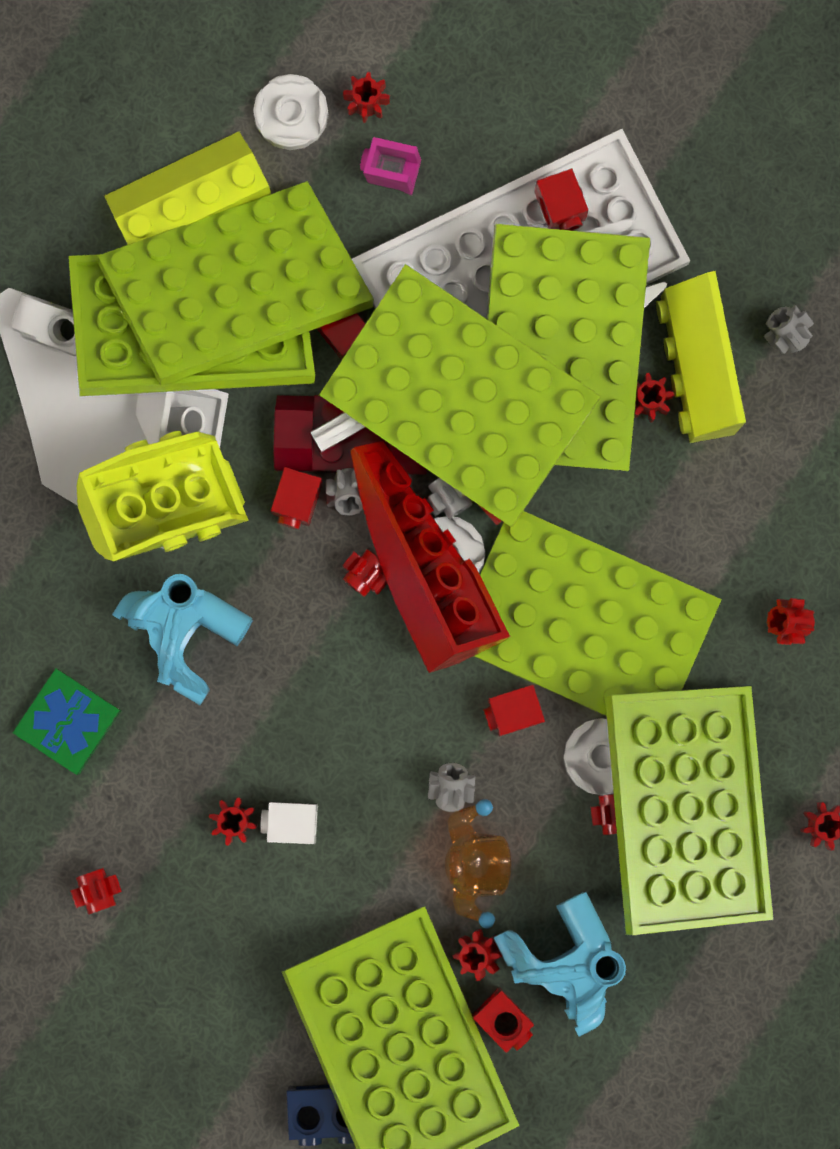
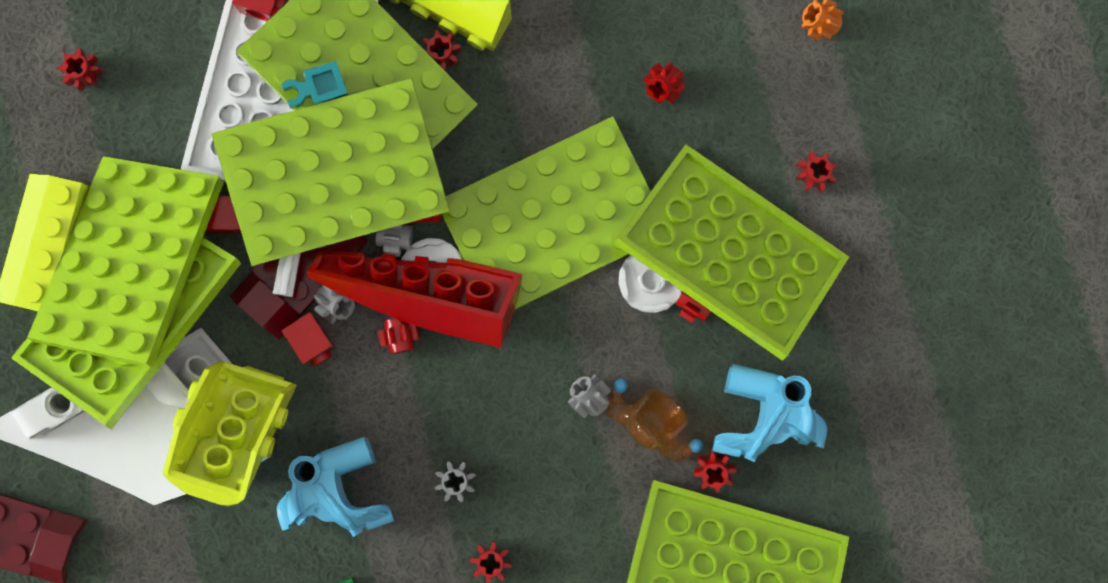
camera: 50 degrees left, 0 degrees up
(267, 733) = (447, 476): none -> light grey gear
(290, 823) = (523, 524): white brick -> none
(291, 125) = (54, 136): white tile -> none
(391, 165) = (139, 91): dark pink window -> none
(491, 1008) = (757, 489): red brick -> none
(514, 711) = (573, 312): red brick -> none
(528, 323) = (321, 84): none -> teal plate

